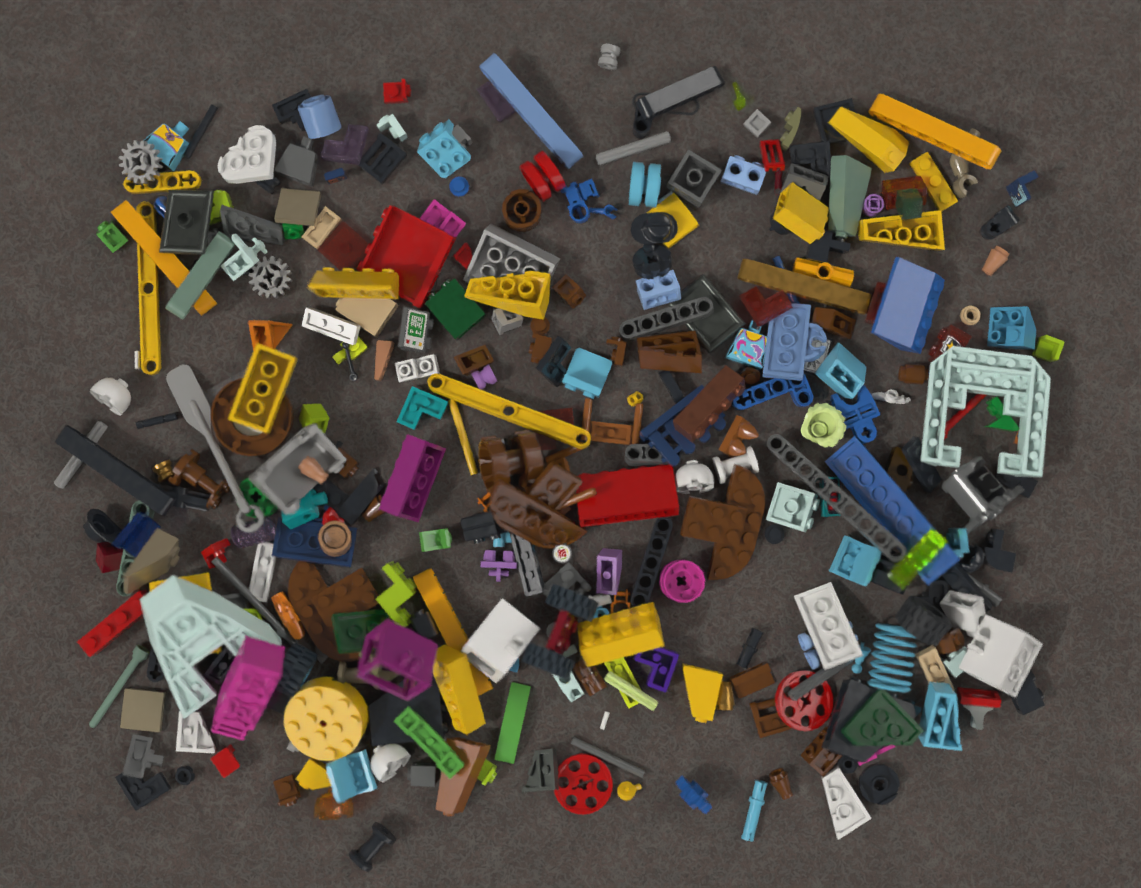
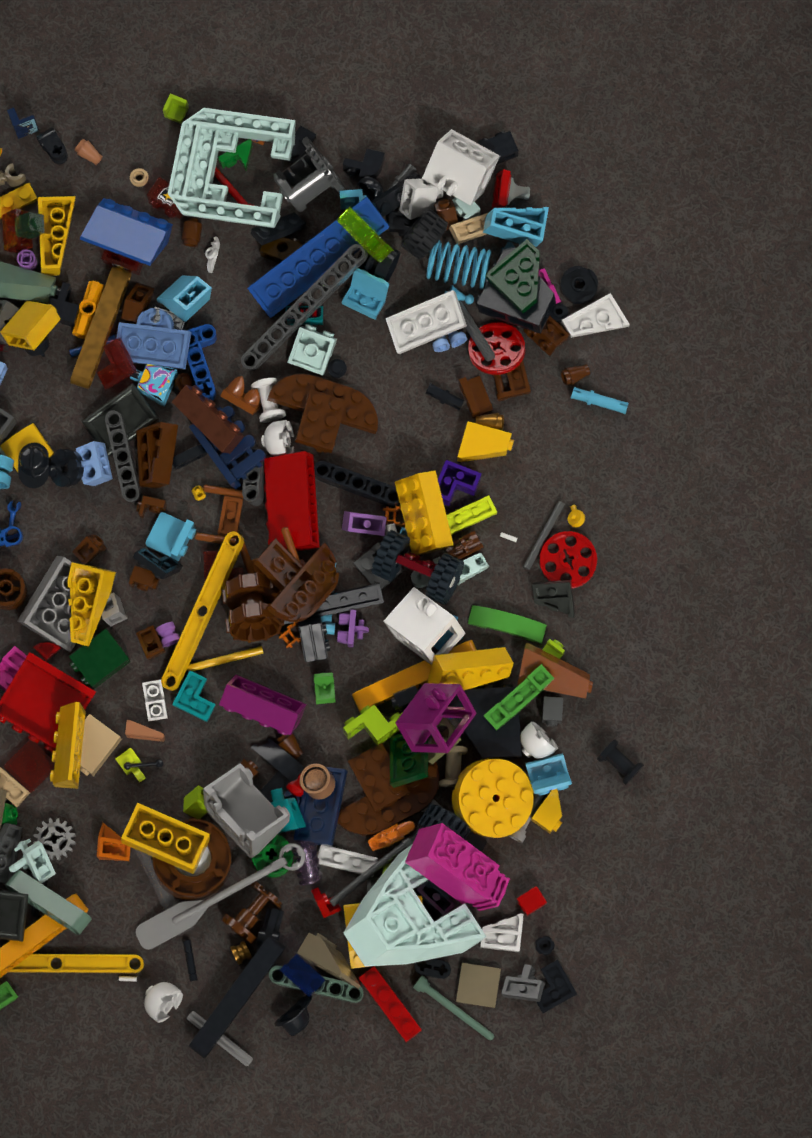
camera: 85 degrees left, 10 degrees down
(108, 557) = (323, 1011): dark red panel -> none
(287, 790) = (563, 845): reddish brown bracket -> none
(312, 469) = (248, 795): nougat cone -> none
(328, 809) = (579, 797): clear orange cylinder -> none
(331, 325) = (107, 780): white plate -> none
(415, 330) = (118, 698): slope -> none
(540, 326) = (121, 579): reddish brown plate -> none
(562, 553) = (345, 569): tile -> none
(631, 690) = (479, 507): yellowish green axle -> none
(693, 581) = (376, 445): dark pink wheel -> none
(693, 794) = (580, 453): blue gear -> none
(823, 425) = (235, 315): yellowish green hair -> none
(862, 421) = (235, 284): blue piece -> none
(1011, 328) = (154, 140): dark azure slope -> none

